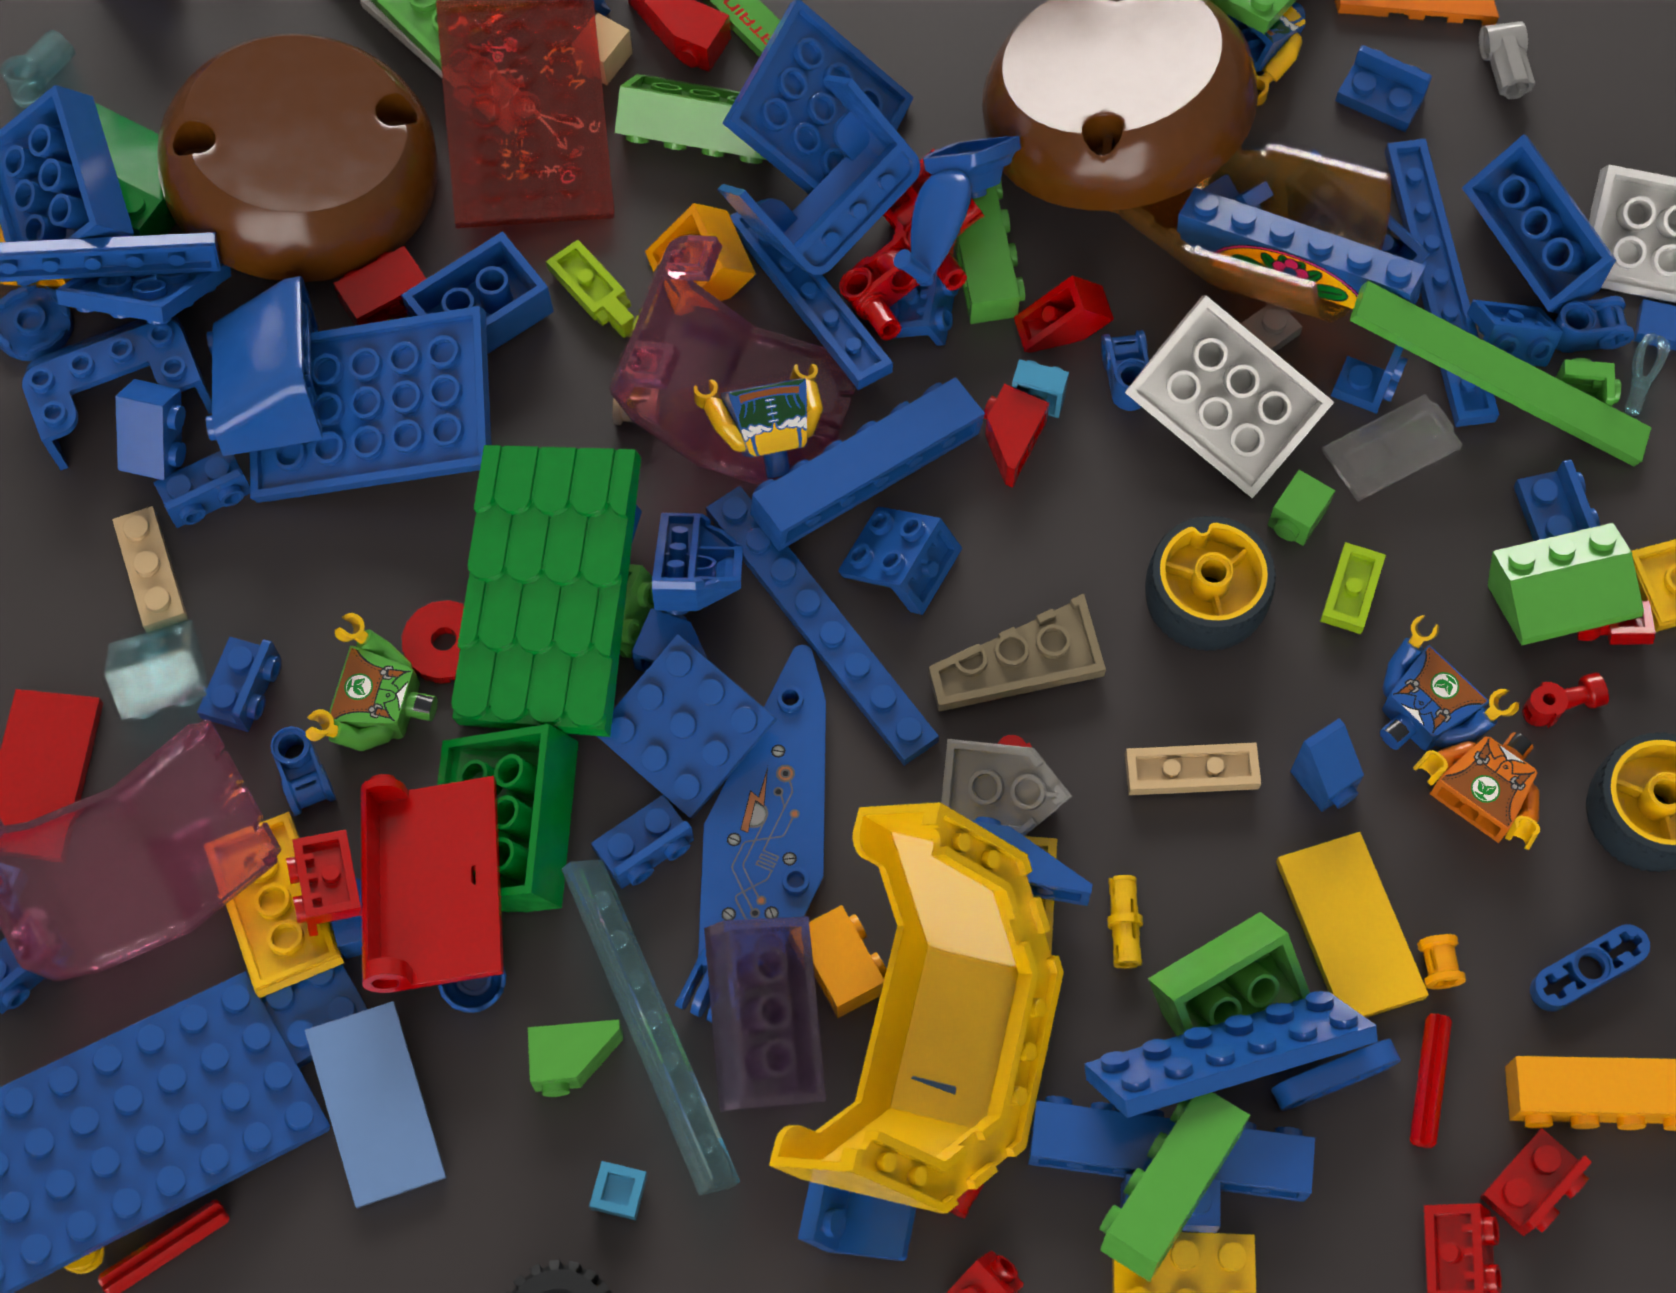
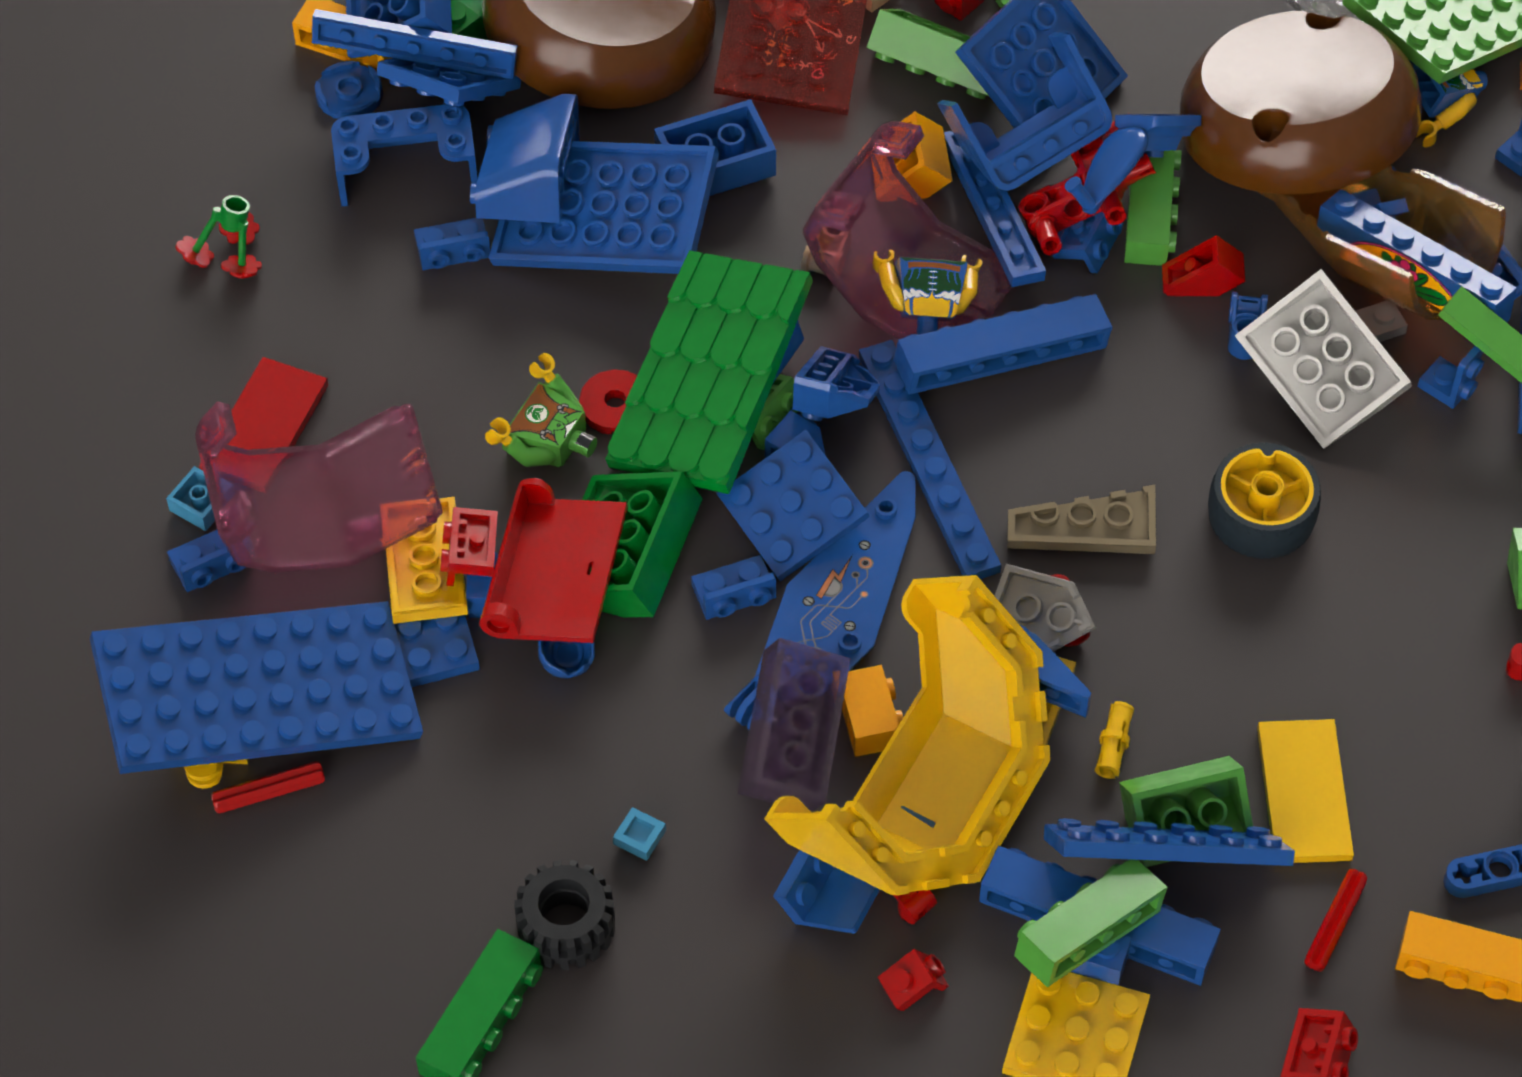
camera: 15 degrees right, 10 degrees down
(149, 429) = (423, 185): blue brick -> none
(150, 569) = (393, 294): tan plate -> none
(156, 671) = (378, 369): clear light blue slope -> none
(239, 683) = (443, 393): blue bracket -> none
(302, 777) = (472, 470): blue piece -> none
(375, 1104) = (463, 723): medium blue tile -> none
(376, 289) = (637, 120): red brick -> none
(569, 1054) = (630, 724): bright green slope -> none
(592, 287) = (811, 158): lime hinge -> none
(651, 1027) = (700, 721): clear light blue tile -> none
(903, 553) = (1016, 421): blue bracket -> none
(1013, 429) = (1135, 348): red slope -> none
(1042, 382) = (1165, 320): dark azure piece -> none
(1192, 768) = (1207, 639): tan plate -> none
(1300, 508) = (1361, 463): bright green brick -> none
(1328, 767) = (1320, 659): blue slope -> none
(1336, 1075) = (1255, 894): blue beam -> none
(1353, 588) = (1387, 534): lime plate -> none
(1392, 447) = (1458, 437): clear piece -> none
(1432, 699) = (1428, 633): torso -> none
(1441, 961) = (1372, 832): light orange bush -> none
(1488, 785) = (1452, 706): torso -> none
(1535, 1182) = (1400, 1016): red bracket -> none

